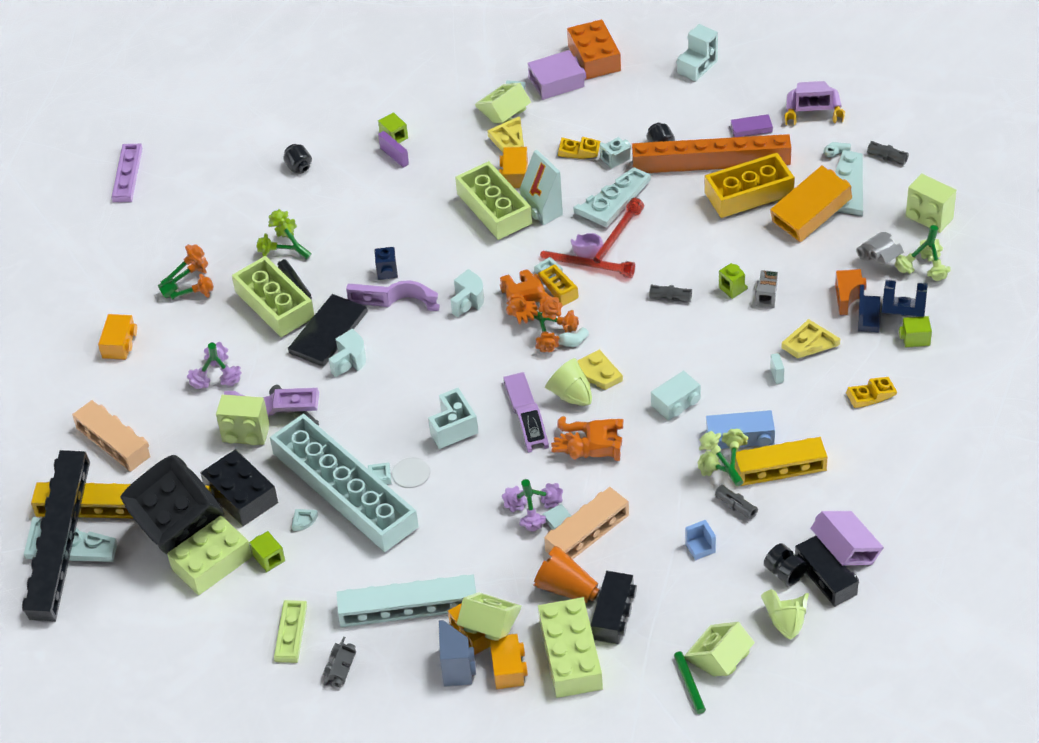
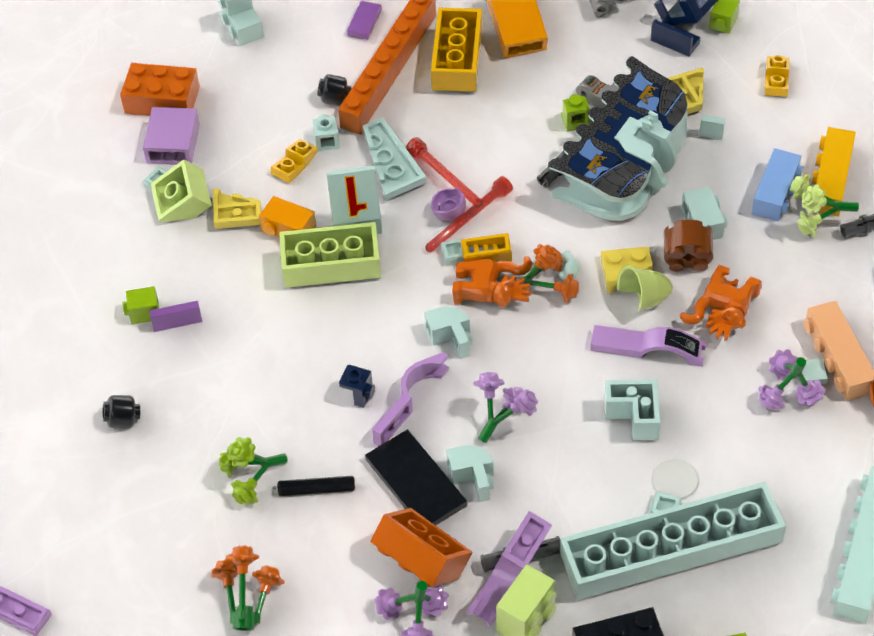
camera: 65 degrees left, 5 degrees up
(261, 346) = (421, 547): none -> orange brick
(273, 296) = (336, 510): yellowish green brick -> none
(303, 519) = (693, 604): light aqua tile -> none
(406, 345) = (516, 401): none -> lavender plant
(629, 393) = (688, 245): none -> dark orange brick
(721, 309) = (626, 147): none -> animal
(848, 288) = (639, 39): orange arch -> none

